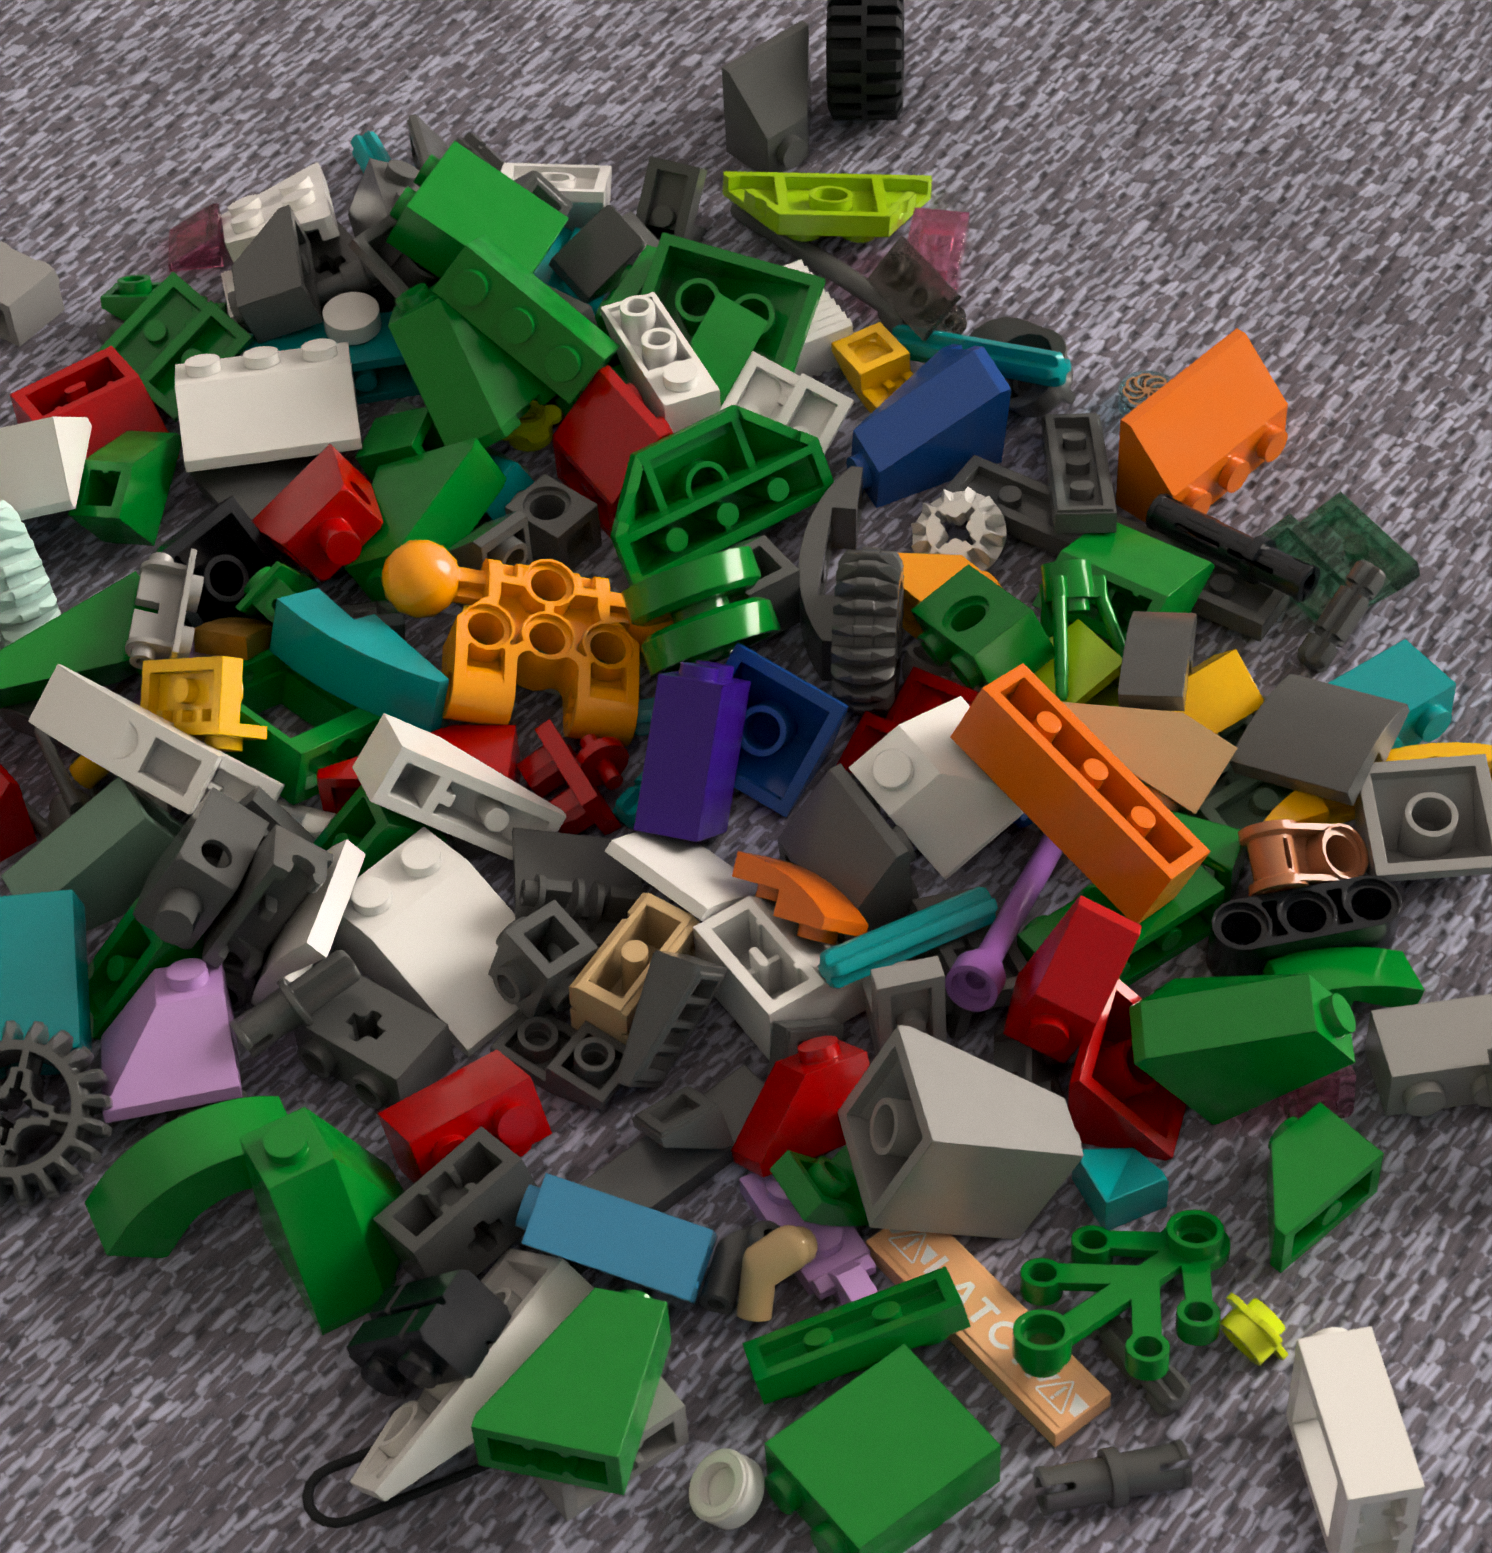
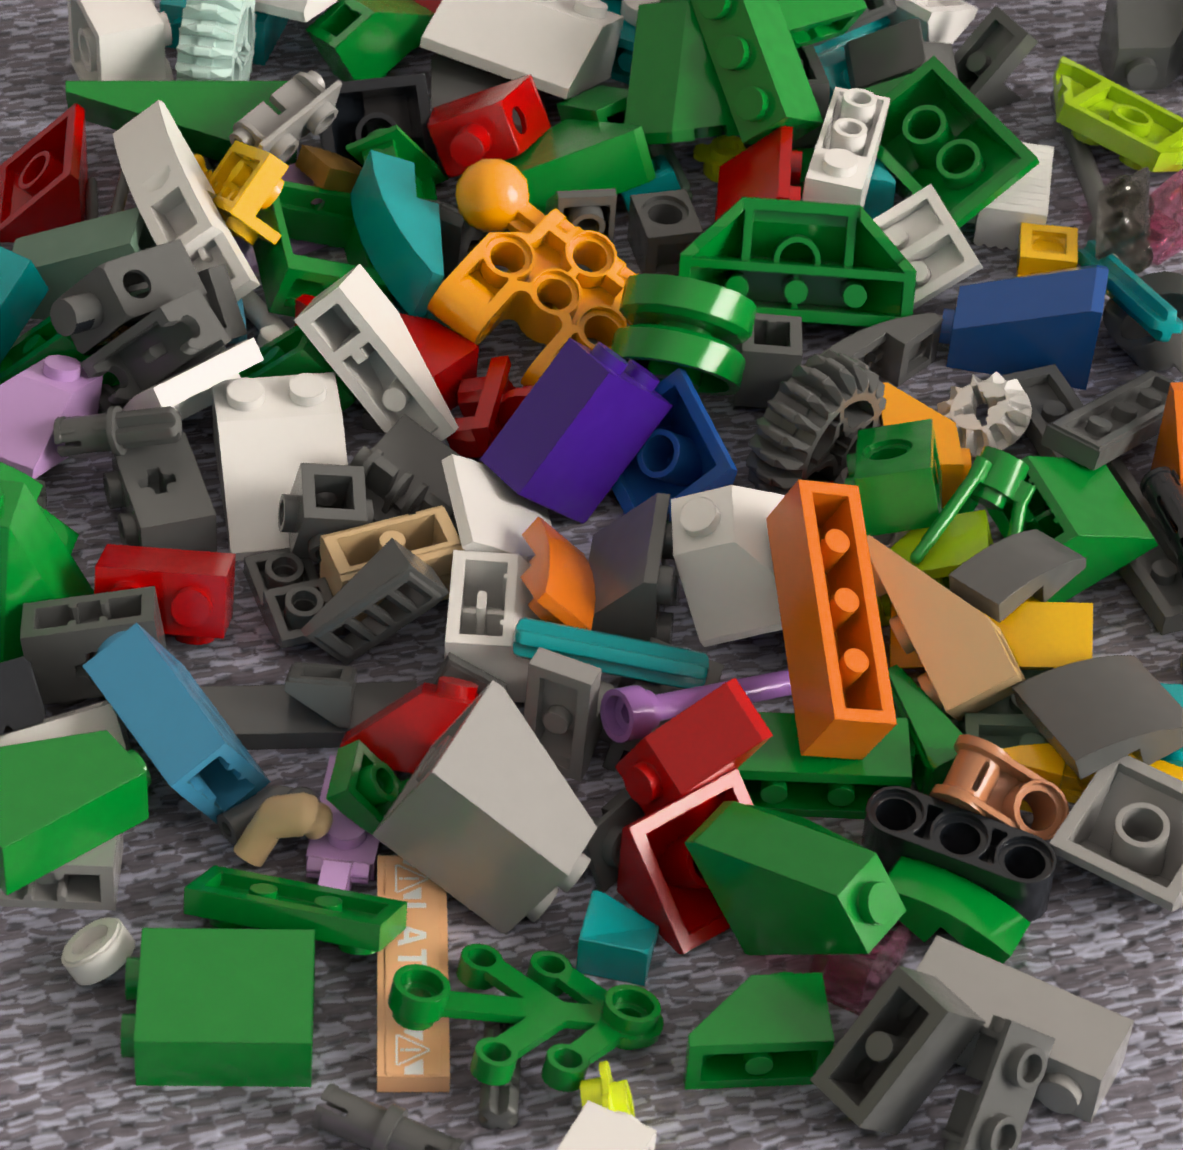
camera: 30 degrees right, 5 degrees down
(726, 341) = (909, 166): green slope -> none
(1440, 1130) = (897, 1051): none -> dark grey brick

